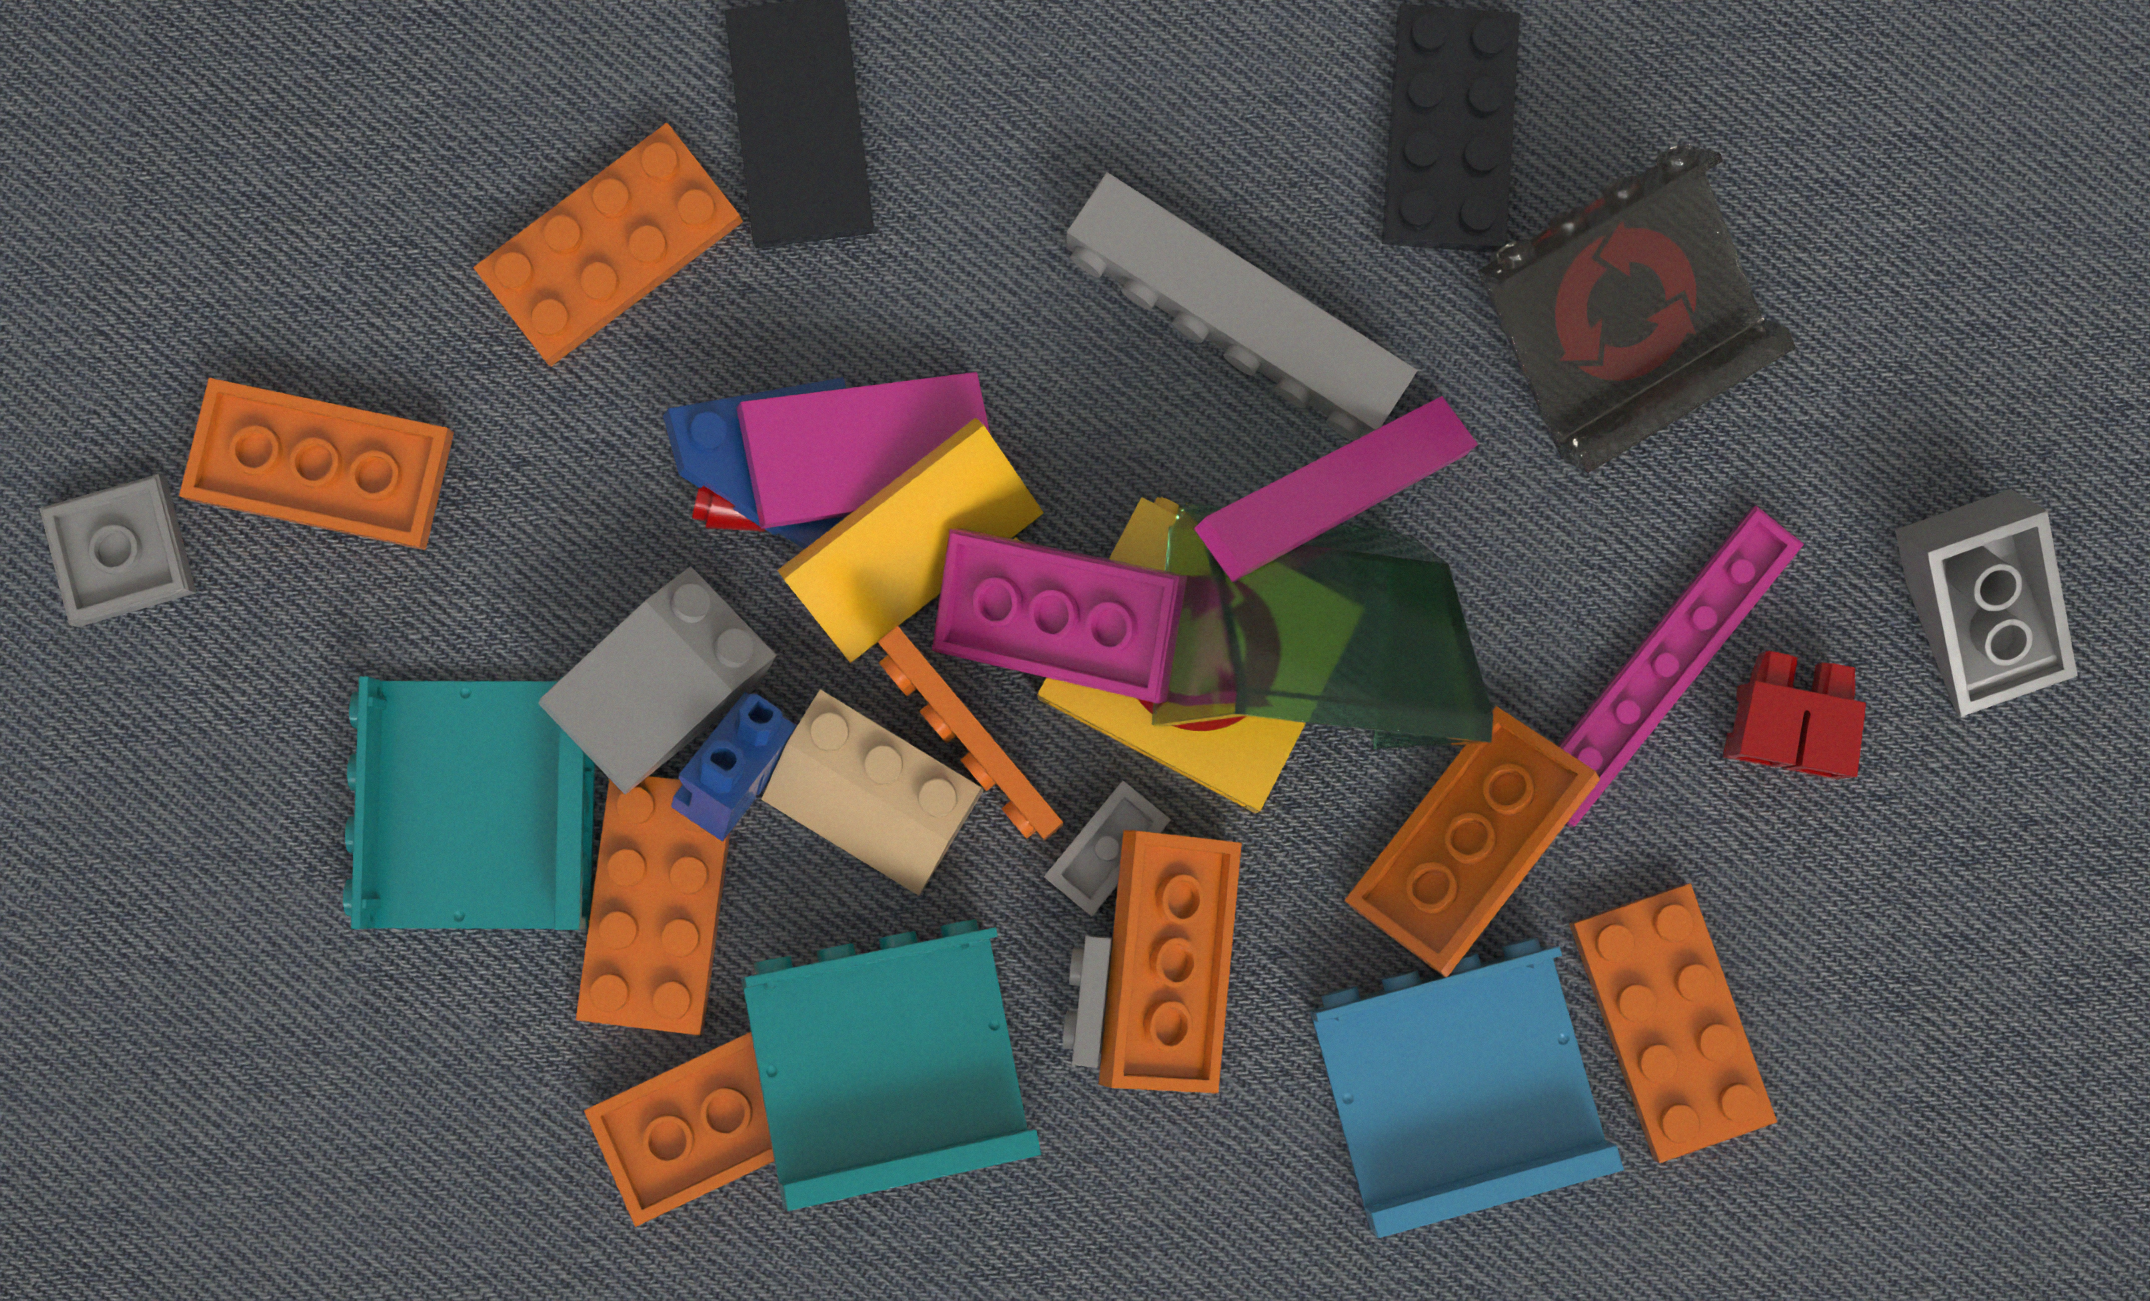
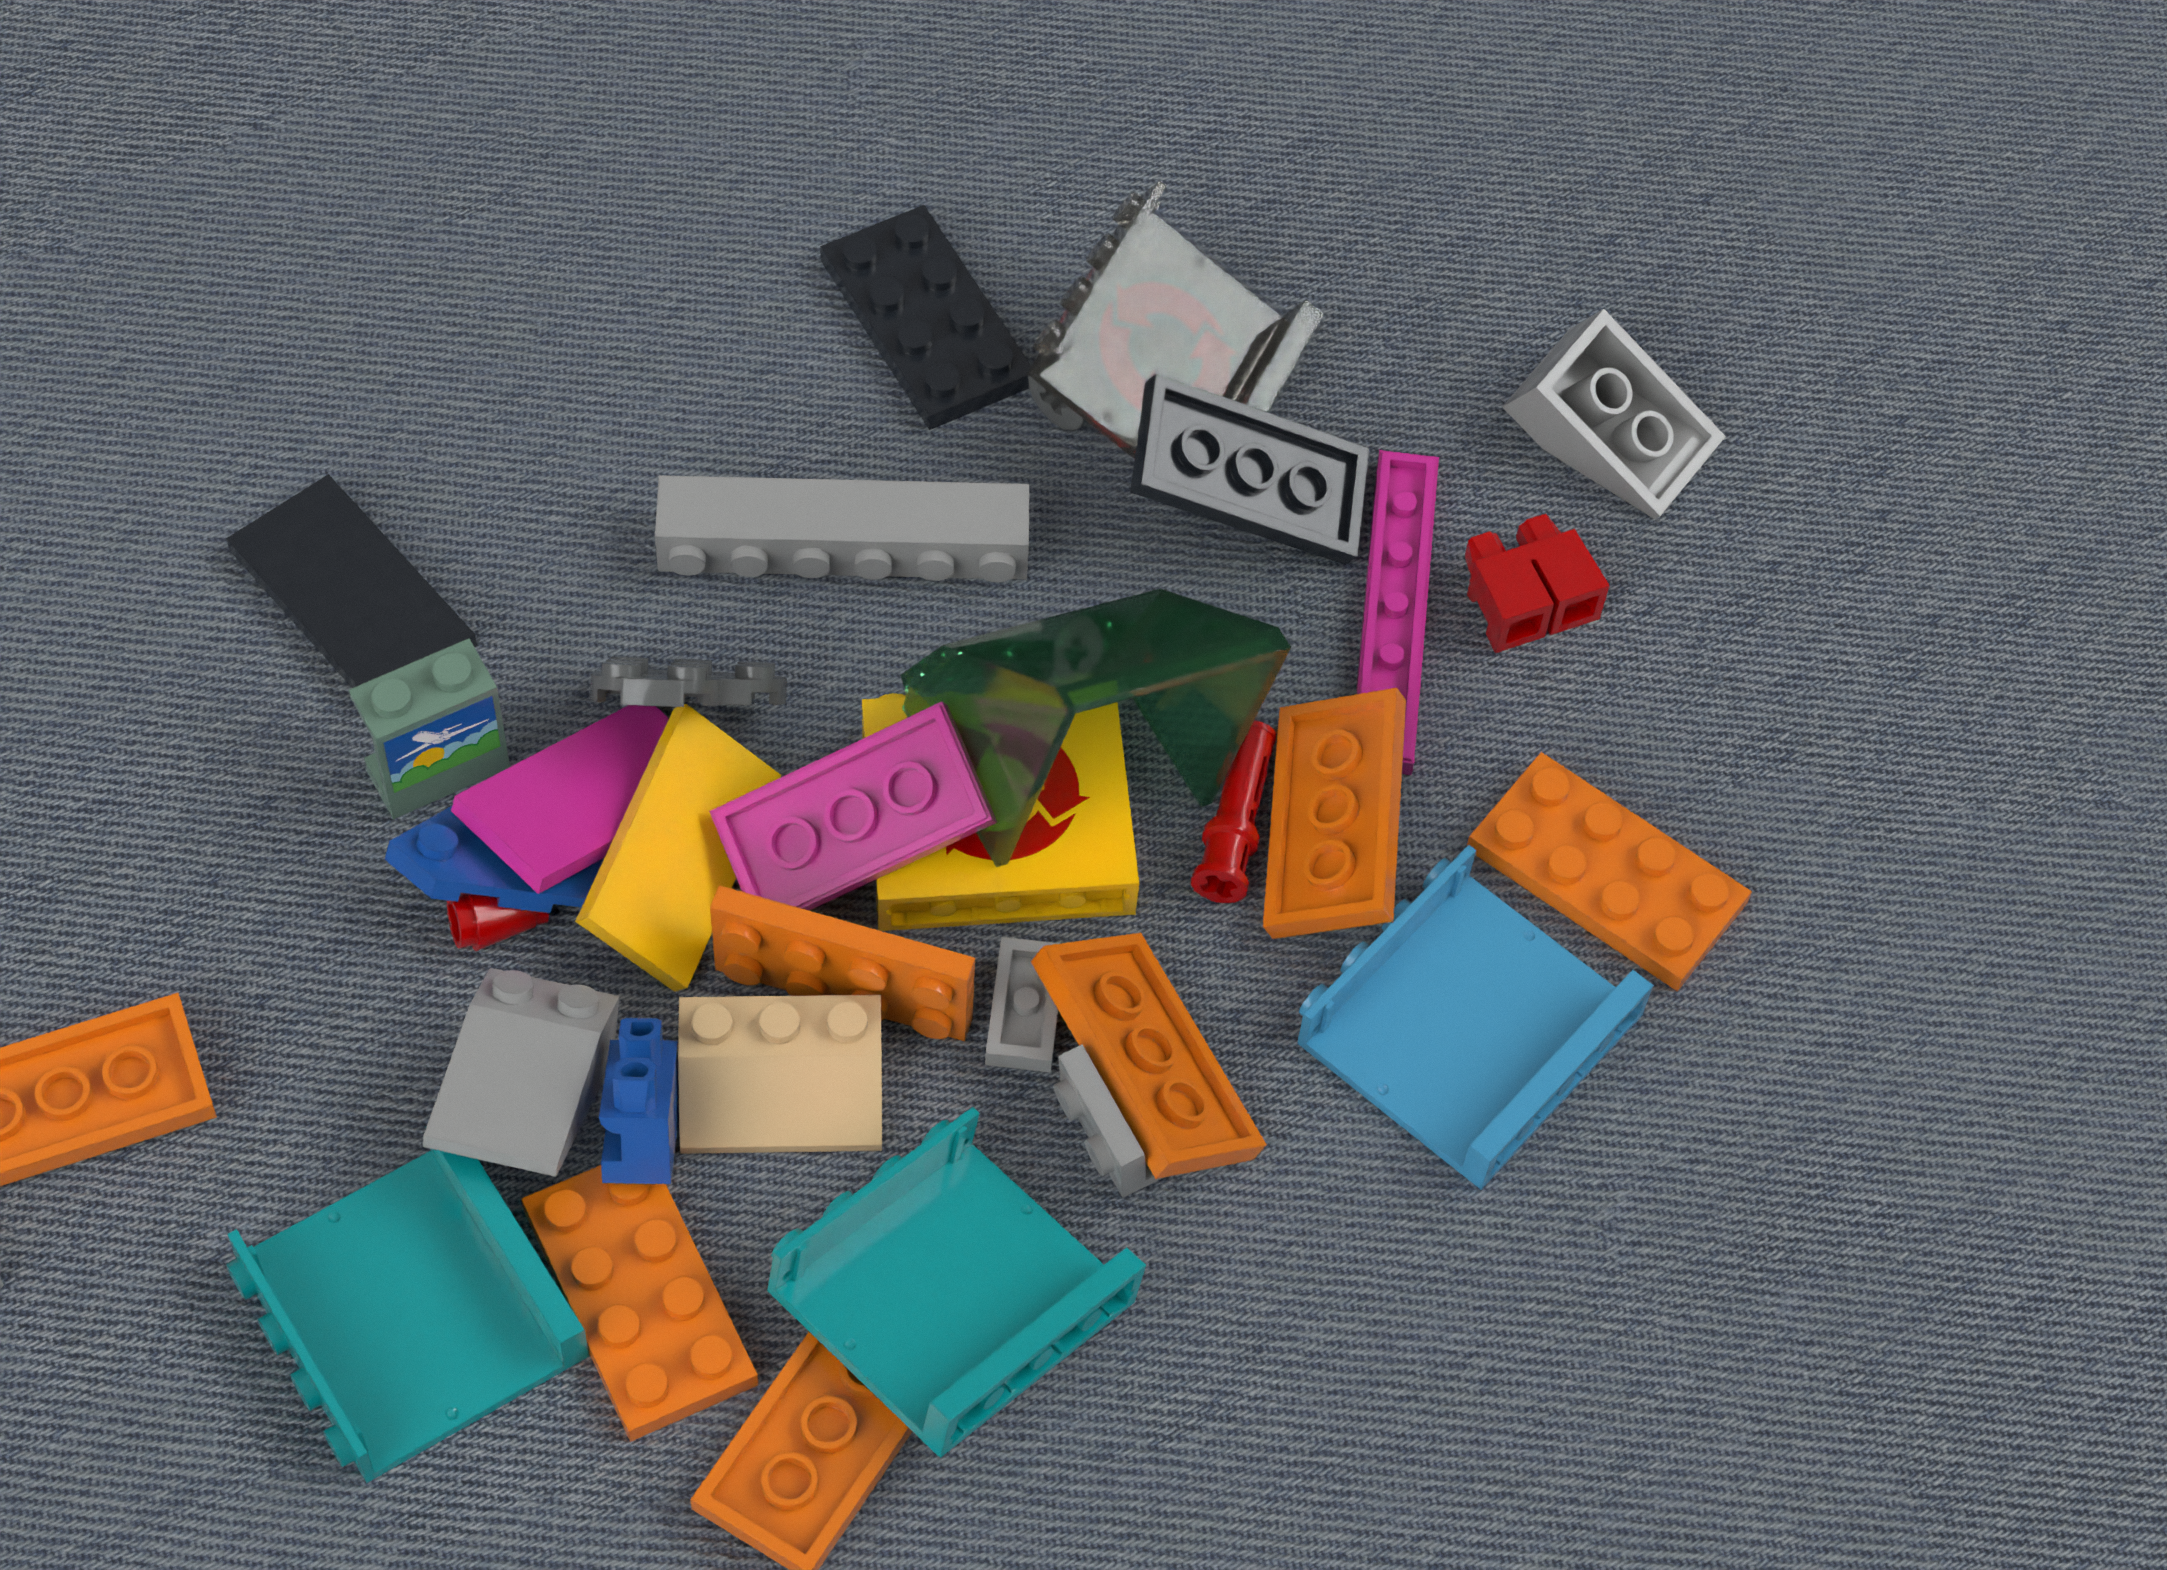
camera: 35 degrees left, 25 degrees down
(608, 244) = (233, 778): orange plate -> none
(765, 313) = (432, 728): none -> sand green panel
(986, 391) = (685, 678): none -> dark grey plate
(1334, 488) = (1024, 580): dark pink tile -> none
(1375, 800) = (1231, 833): none -> red pin
(1616, 474) = (1250, 469): none -> plate

